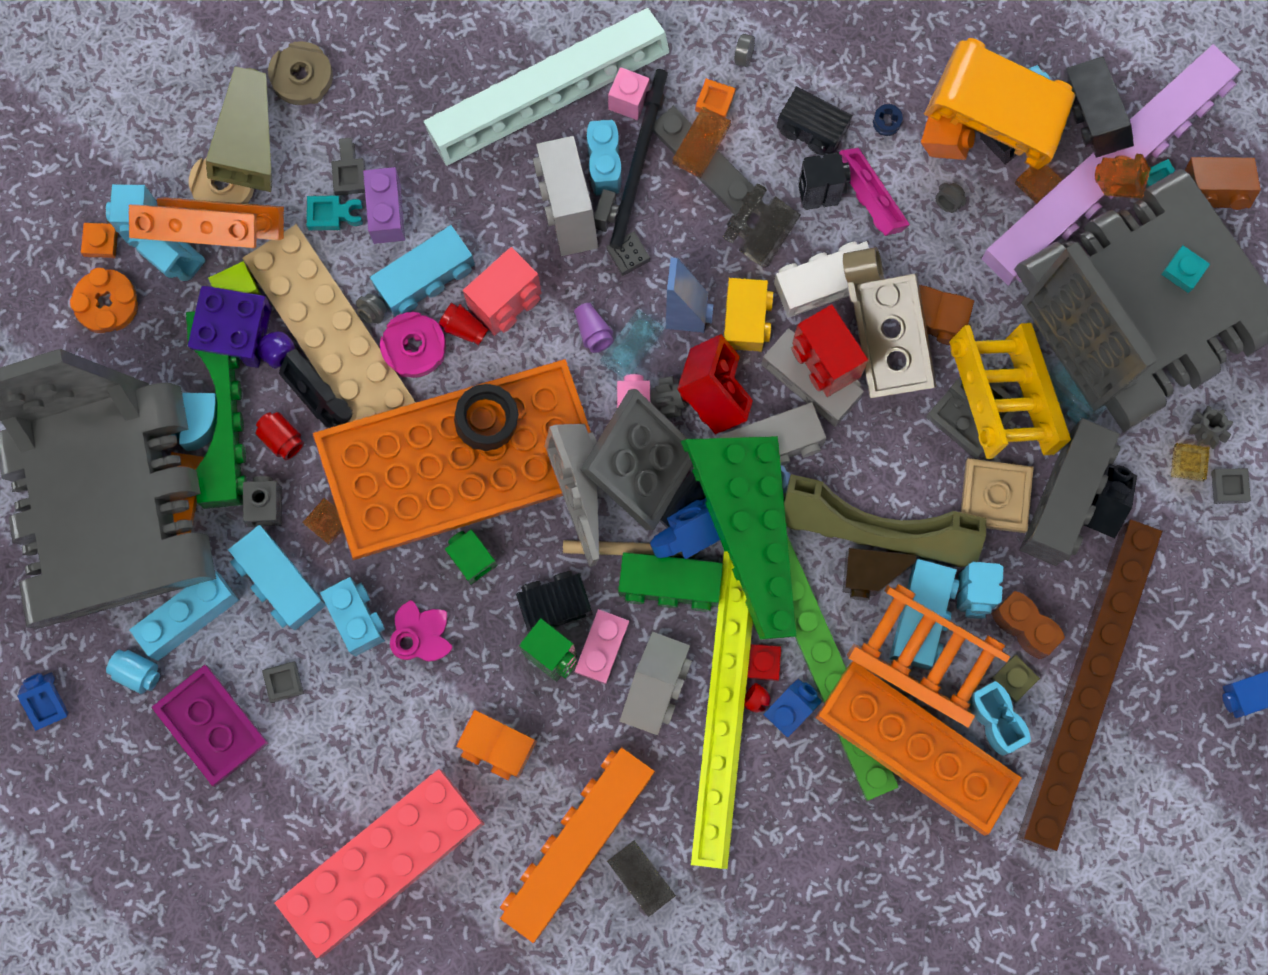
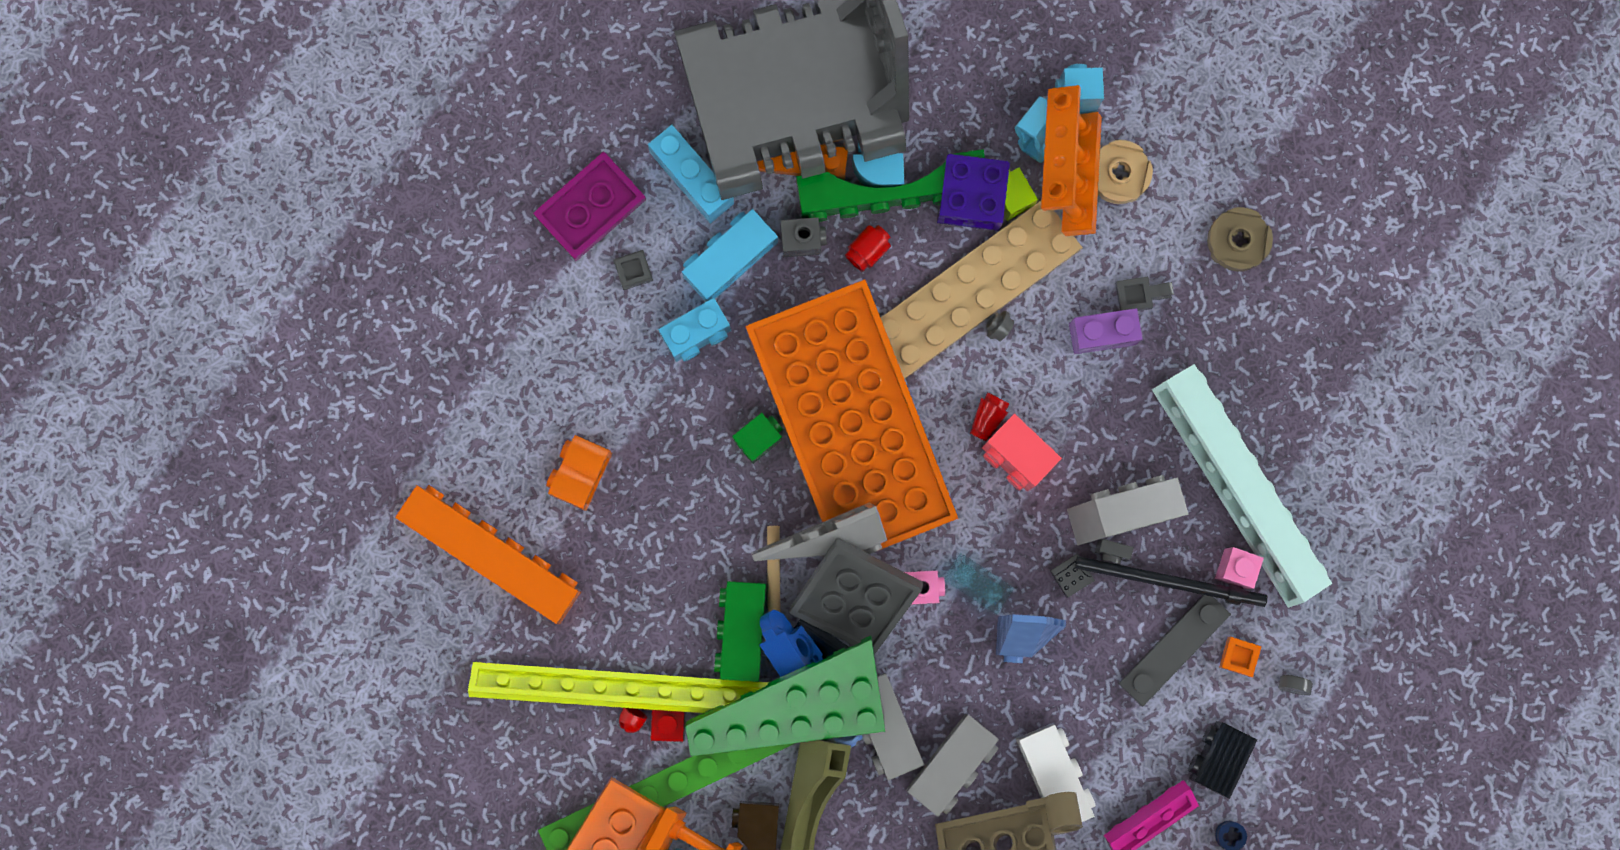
camera: 80 degrees right, 5 degrees up
(41, 700) = (607, 51): blue bracket -> none
(99, 240) = (1054, 59): orange plate -> none
(100, 283) = (991, 54): orange plate -> none
(133, 671) = (637, 132): medium azure brick -> none
(242, 137) = (1164, 187): slope -> none
(274, 347) = (954, 238): dark purple piece -> none
(313, 391) = (912, 278): black hinge -> none
(324, 521) = (786, 296): clear orange plate -> none
(328, 212) = (1095, 276): teal plate -> none
(379, 864) = (466, 372): coral brick -> none
(396, 337) = (972, 352): dark pink plate -> none
(423, 271) = (1039, 374): medium azure brick -> none
(423, 629) = (686, 398): dark pink plate -> none
(488, 392) = (914, 447): black tyre -> none
(549, 651) = (662, 518): green brick -> none
(554, 602) = (716, 520): black brick -> none
(593, 329) = (991, 544): medium lavender cone -> none
(602, 646) = (677, 568): bright pink plate -> none
(604, 156) = (1175, 546): medium azure brick -> none
(641, 878) = (459, 615): clear smoke plate -> none
(656, 683) = (640, 623): light grey brick -> none
(667, 397) = (924, 623): dark grey gear -> none
(701, 142) = (1192, 644): clear orange plate -> none
(711, 385) = (934, 663): red brick -> none
(746, 314) = (1014, 697): yellow brick -> none
(769, 231) = (1104, 717): clear smoke plate -> none
(793, 707) = (624, 755): blue bracket -> none
(823, 180) = (1156, 770): black brick -> none
(828, 351) = (970, 779): red brick -> none

